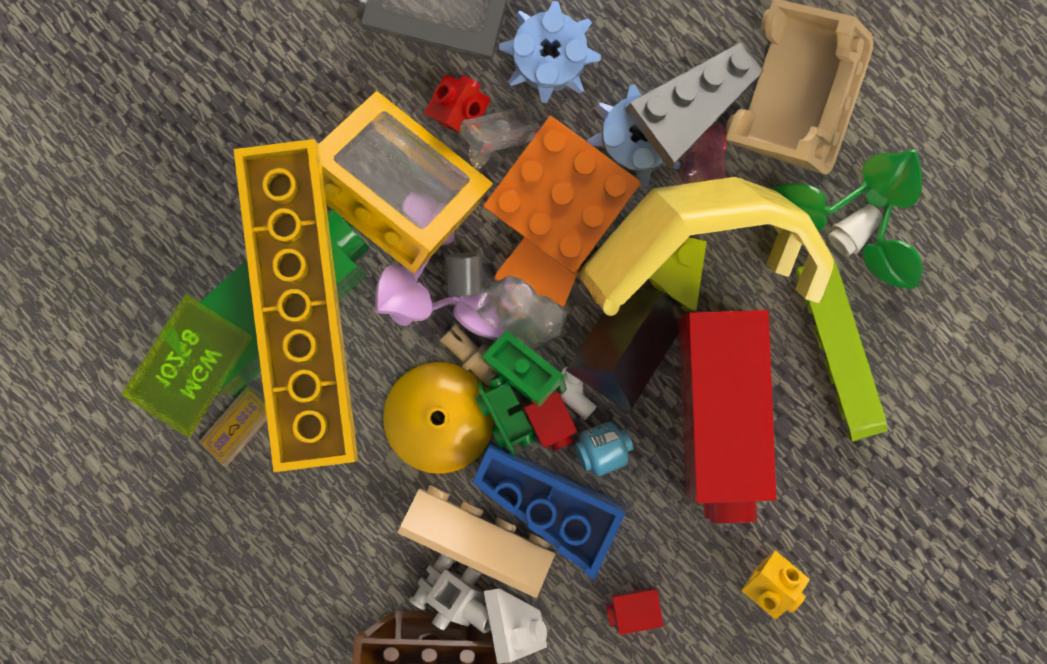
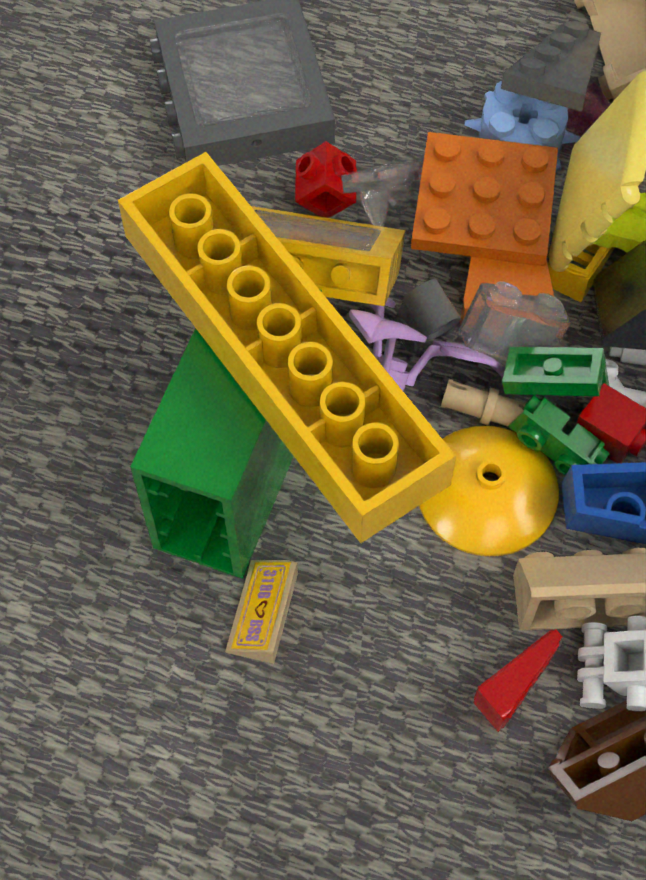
camera: 30 degrees left, 25 degrees down
(187, 365) = (179, 481): clear neon green tile -> none
(364, 568) = (508, 687): none -> red slope
(549, 73) = (388, 98): light blue brick -> none

